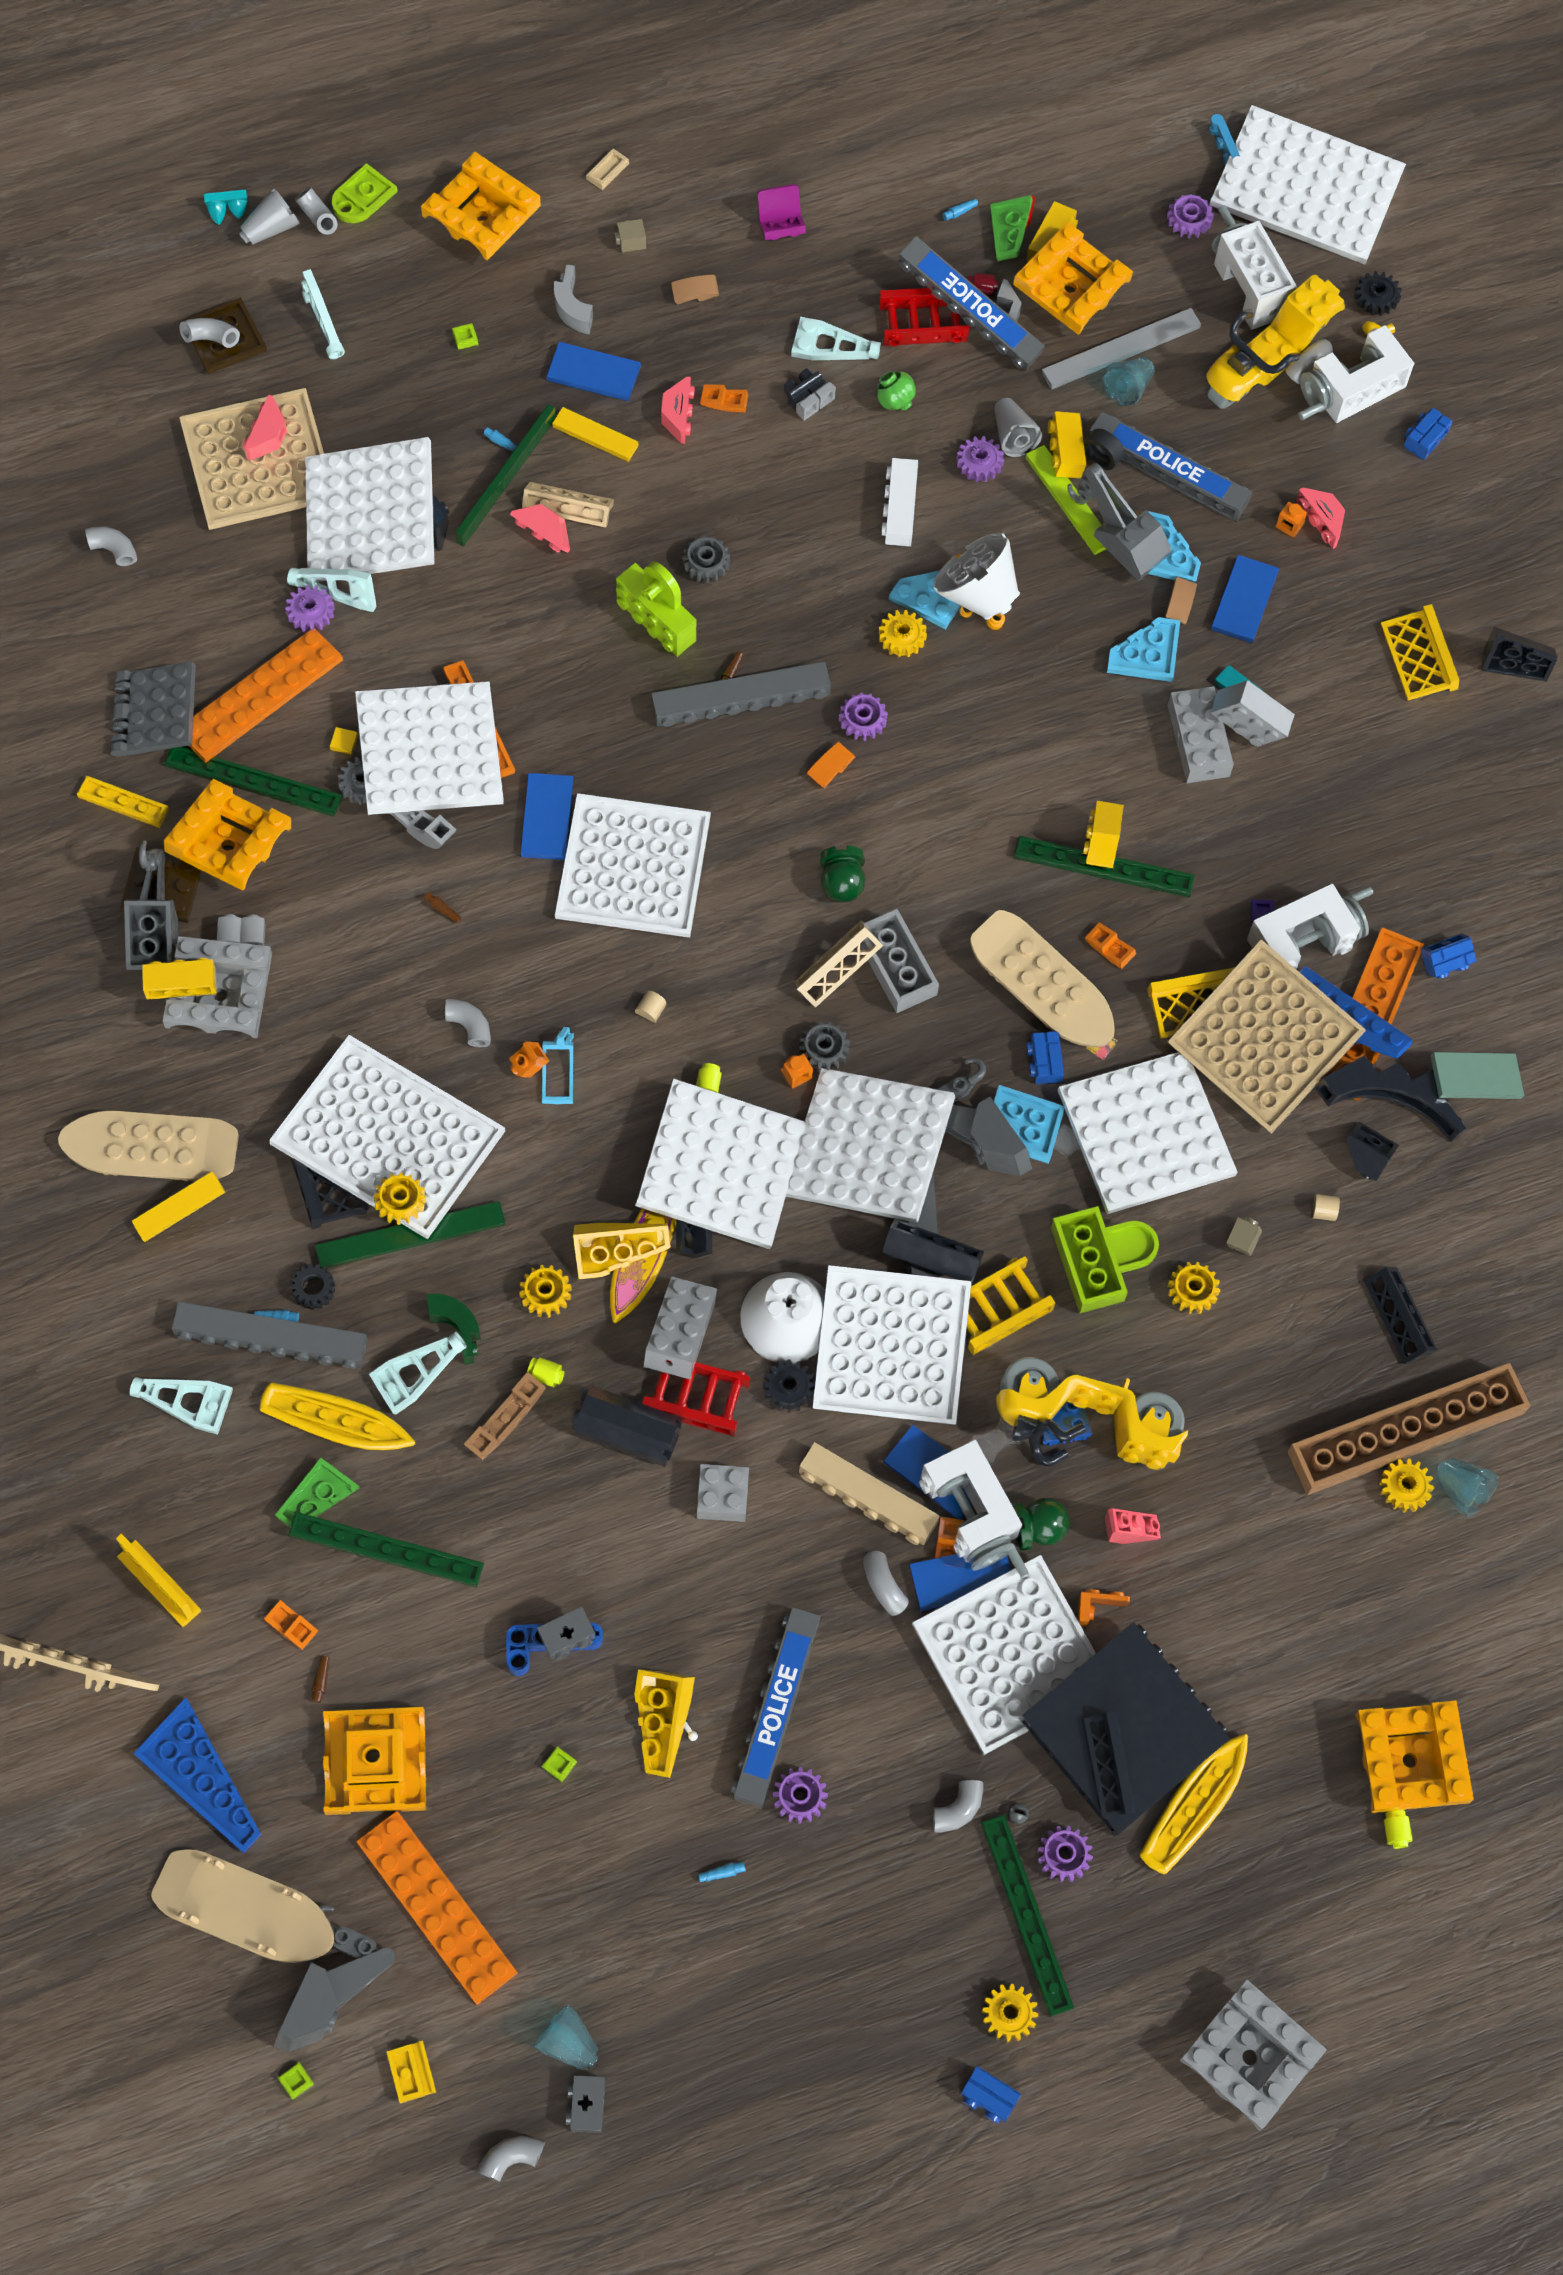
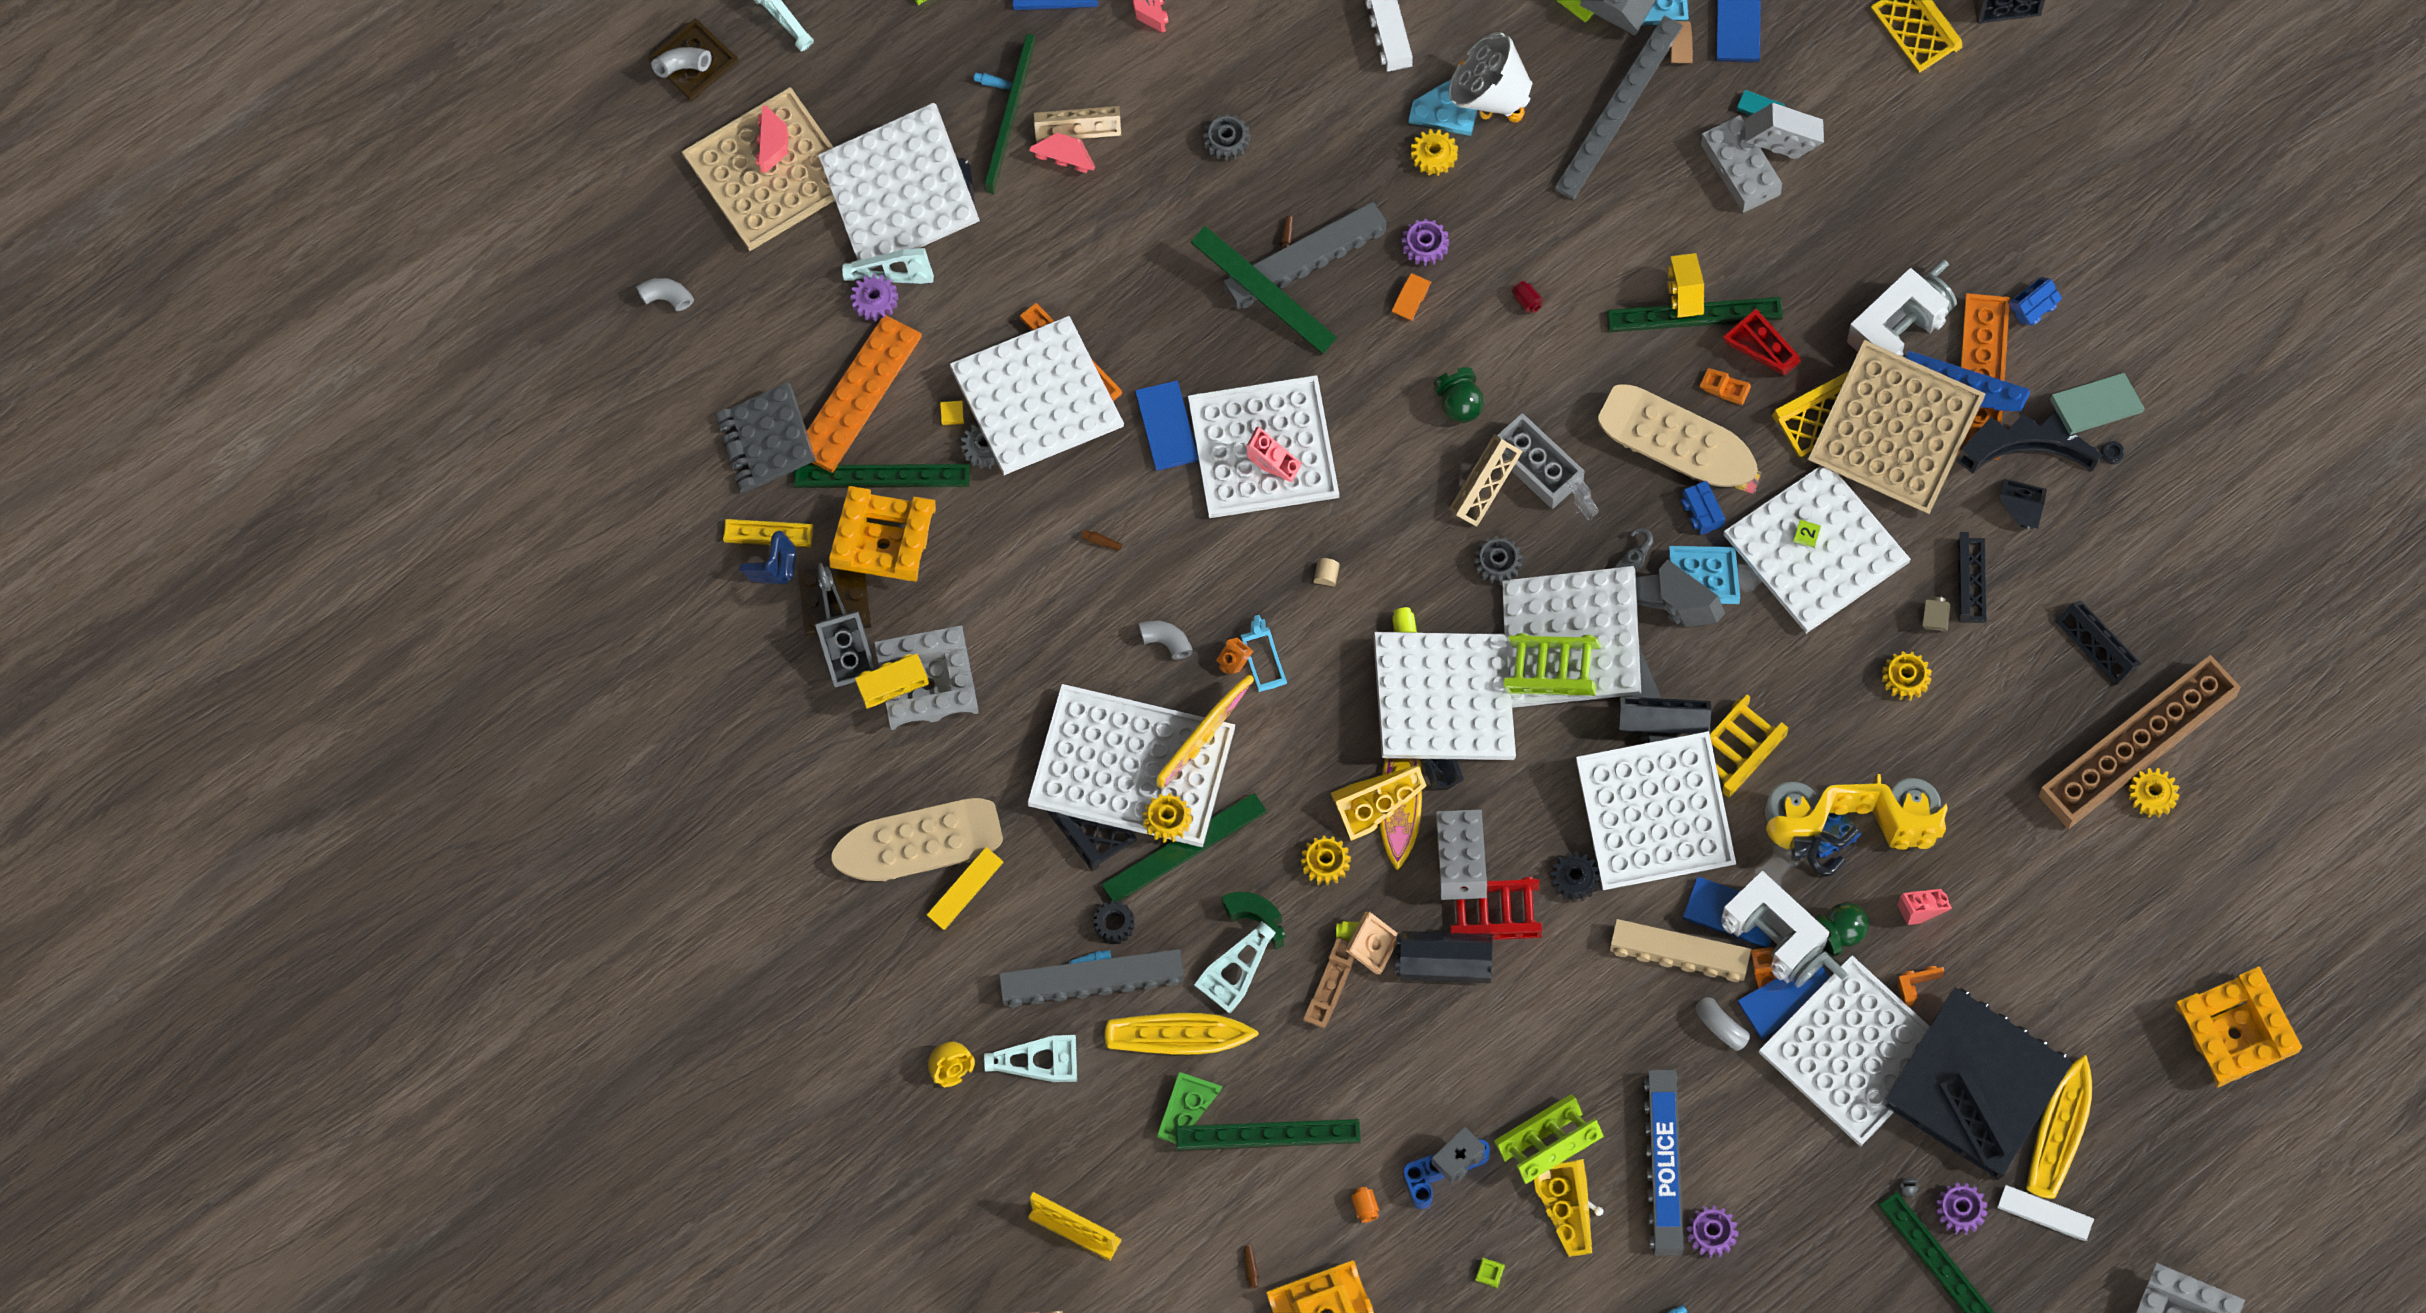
camera: 10 degrees left, 0 degrees up
(96, 1376) = (949, 1063): none -> yellow cylinder
(103, 835) = (767, 571): none -> dark blue piece
(241, 930) = (926, 618): light grey brick -> none
(291, 1625) = (1206, 1228): orange slope -> none
(425, 828) = (1062, 472): light grey arch -> none
(457, 1653) = (1365, 1204): none -> orange brick
(466, 1125) = (1203, 733): none -> yellow piece
(560, 1388) = (1372, 943): none -> light nougat tile
(595, 434) = (1078, 48): yellow tile -> none
(634, 874) = (1271, 456): none -> coral slope
(656, 603) = (1200, 194): lime brick -> none
(662, 1630) = (1539, 1127): none -> lime fence
(686, 713) = (1263, 290): none -> dark green tile
(722, 1493) = (1550, 990): light grey brick -> none
(784, 1317) = (1549, 816): white cone -> none
(794, 1069) = (1481, 589): orange brick -> none
(840, 1188) = (1561, 684): none -> lime fence
(928, 1009) = (1582, 497): none -> clear tile
(944, 799) = (1527, 297): none -> dark red brick
(961, 1810) = (1858, 1200): light grey cylinder -> none
(1098, 644) = (1618, 107): none -> dark grey plate
(1099, 1255) = (1812, 673): lime brick -> none
(1140, 1114) = (1807, 533): none -> lime tile
(1148, 652) = (1666, 100): medium azure plate -> none
(1151, 1887) = (2045, 1213): none -> white tile
(1160, 913) = (1761, 342): none -> red wedge
(1261, 908) = (1851, 311): dark purple tile -> none
(1285, 1207) = (1964, 579): none -> black fence
(1326, 1207) = (2000, 566): tan brick -> none
(1397, 1829) = (2244, 1095): neon yellow brick -> none
(1466, 1484) = (2206, 775): clear light blue cone -> none
(1478, 1129) = (2113, 452): none -> black tile

